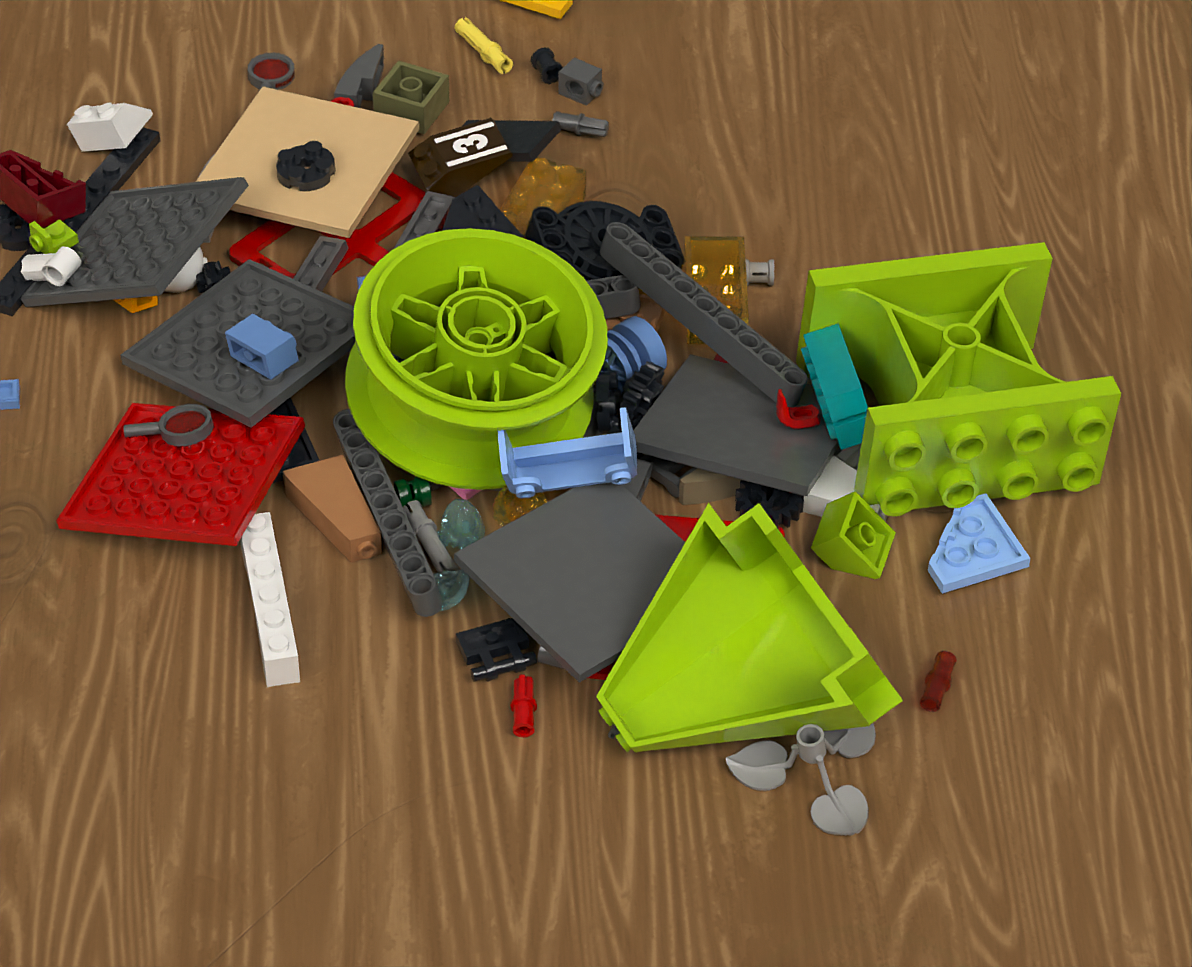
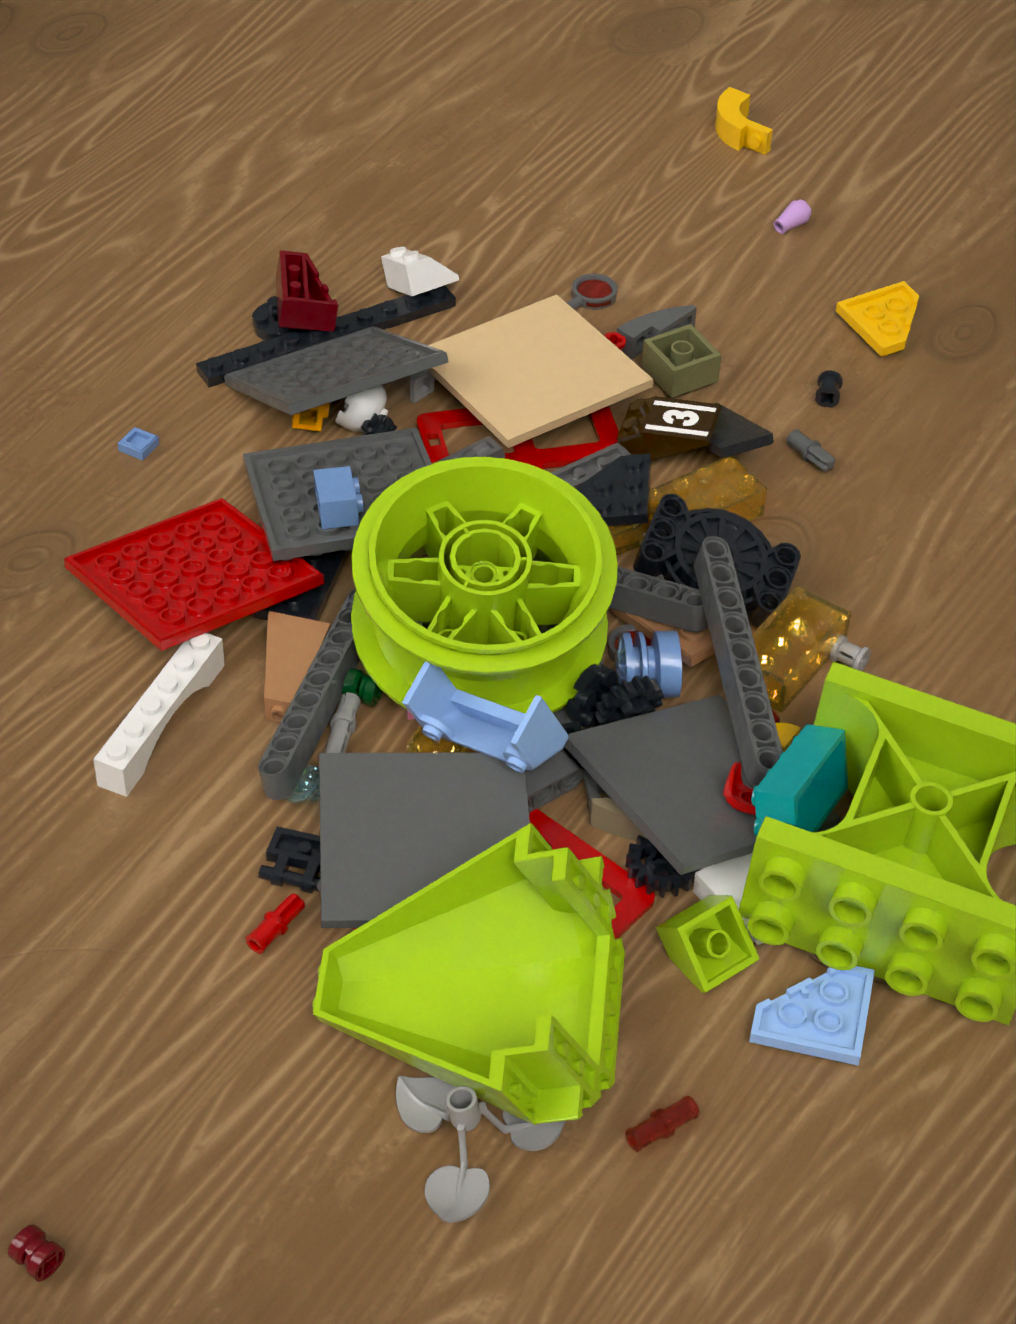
camera: 35 degrees right, 0 degrees up
(51, 267) = (256, 359): white piece -> none
(52, 237) = (283, 340): lime bracket -> none
(178, 426) = (225, 533): dark grey piece -> none
(292, 163) = (533, 365): black plate -> none
(461, 524) = (378, 736): clear light blue hat -> none
(489, 51) = (790, 352): light yellow pin -> none
(580, 81) = (844, 414): dark grey brick -> none

